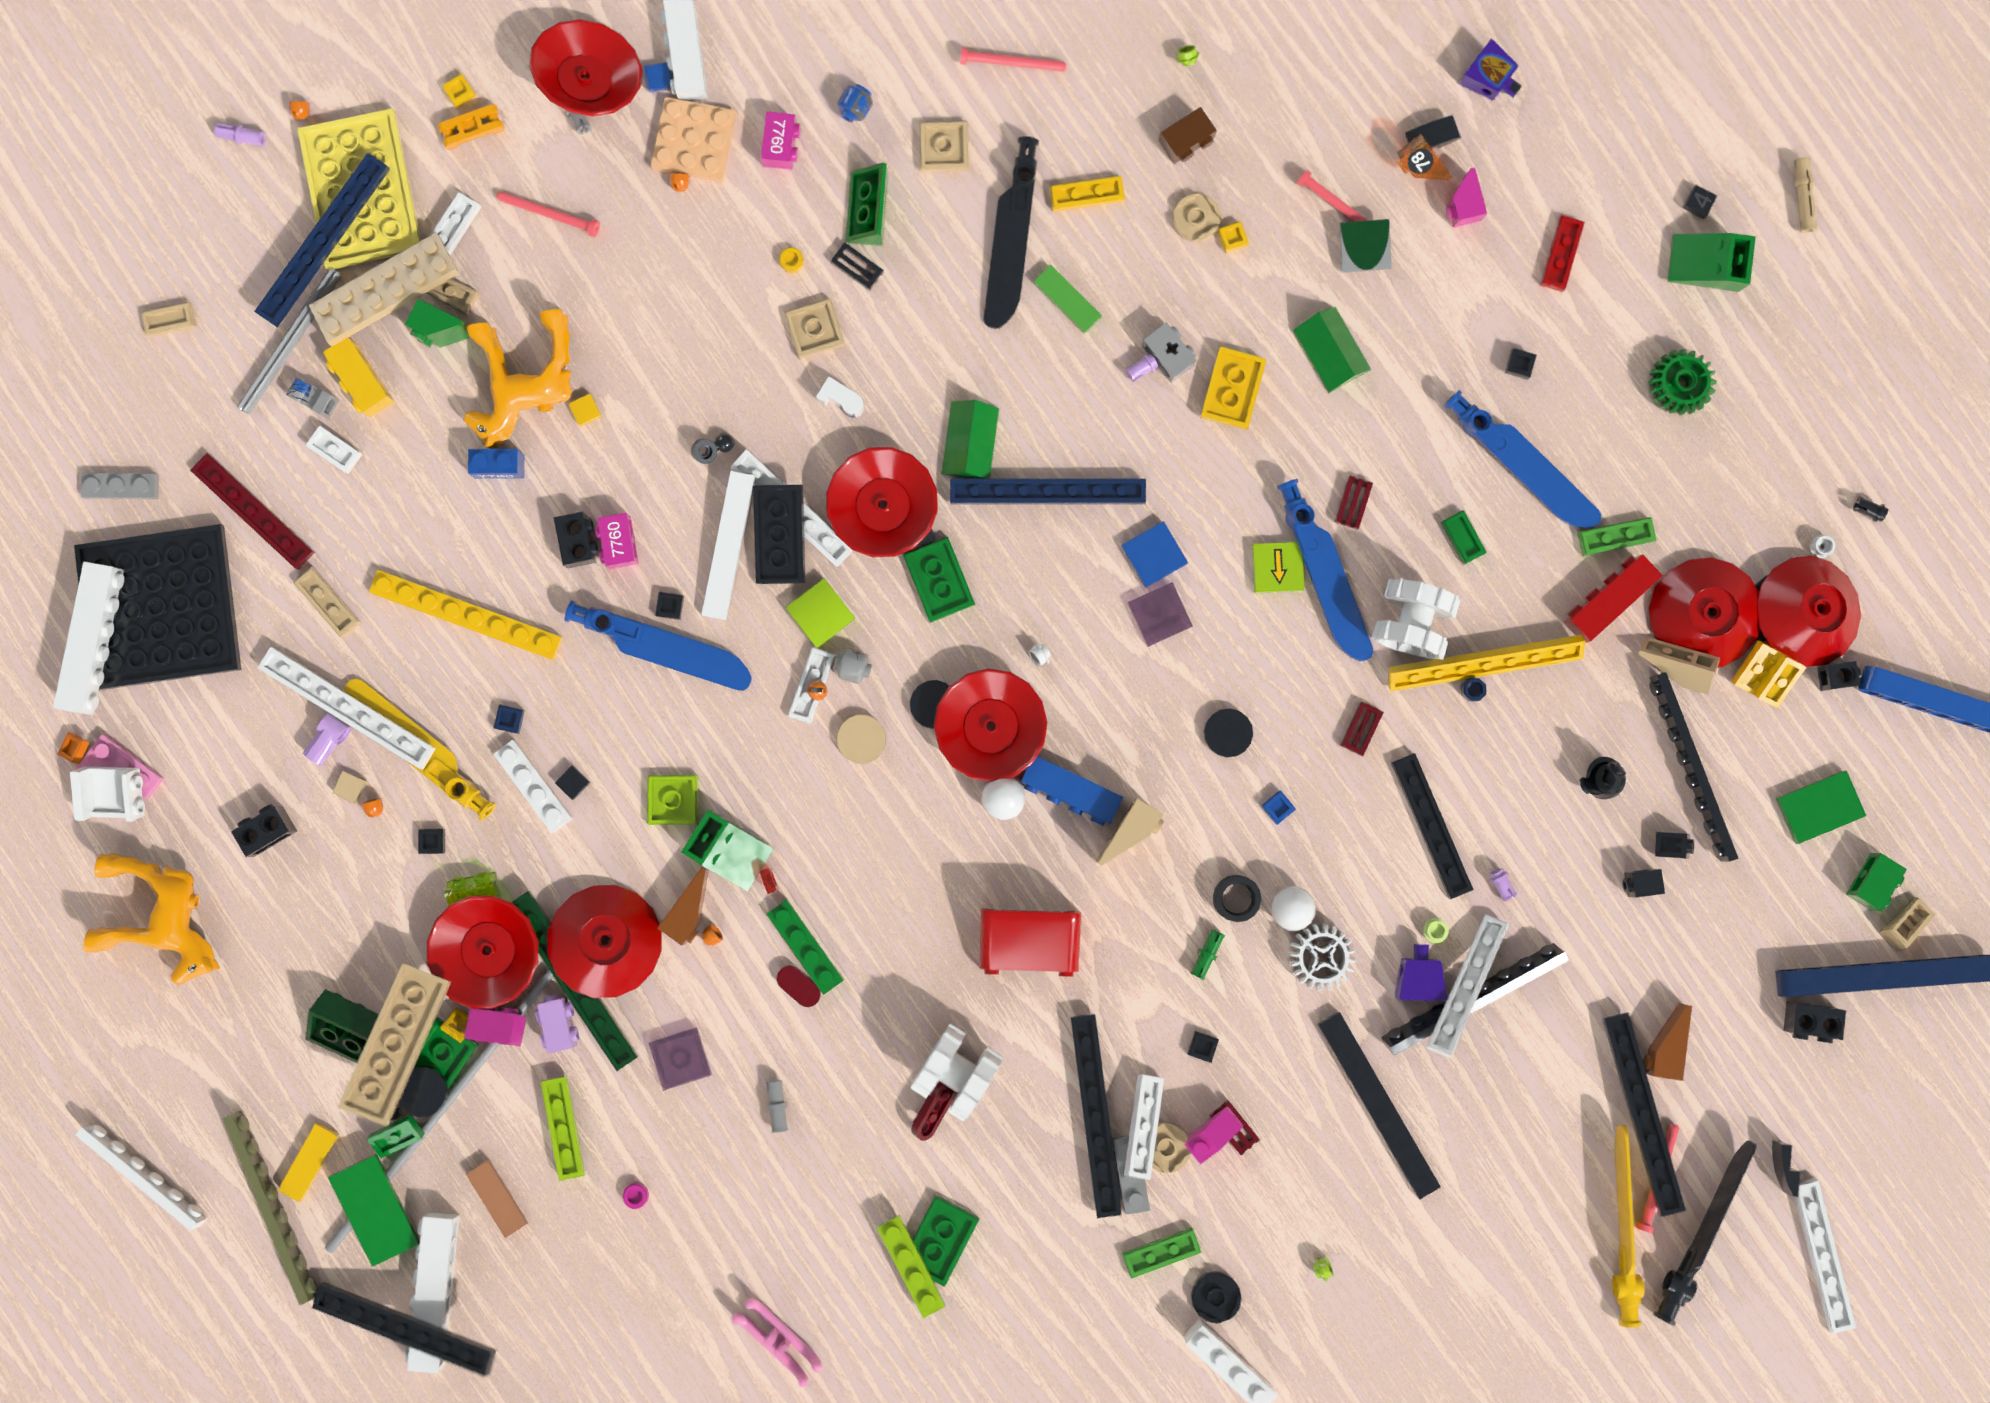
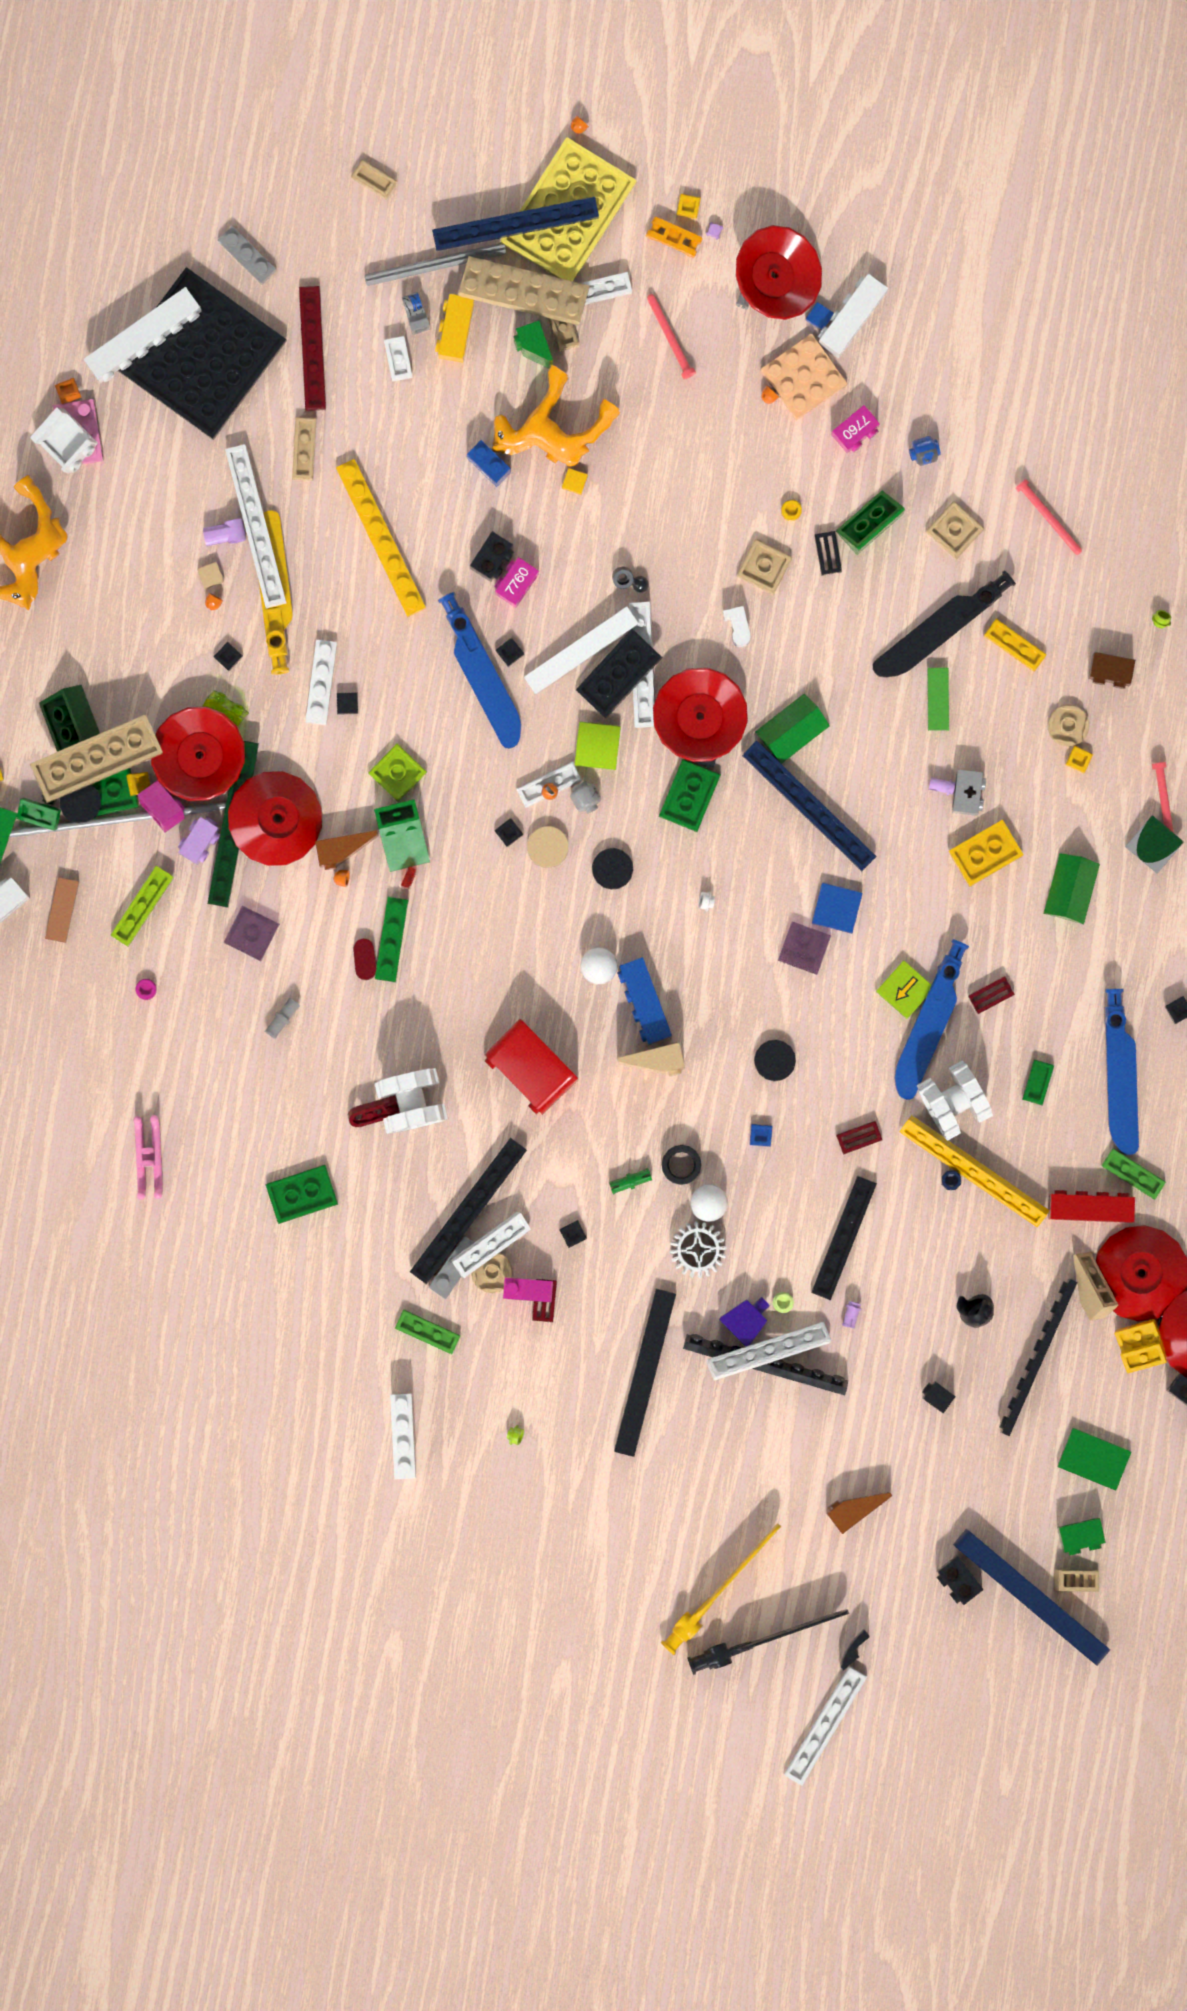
camera: 45 degrees right, 0 degrees up
(240, 134) = (527, 105): lavender axle -> none
(265, 835) = (133, 557): black brick -> none
(500, 90) = (714, 230): none -> lavender piece
(509, 719) = (345, 627): dark blue tile -> none
(816, 758) = (508, 832): none -> black tile
(911, 1266) = (270, 1191): lime plate -> none
(987, 698) = (640, 892): red dish -> none
(1216, 1297) = (434, 1390): black tile -> none
(1644, 1114) = (799, 1532): black plate -> none
(1650, 1206) = (735, 1600): coral bar -> none
(1673, 845) = (980, 1393): black bracket -> none

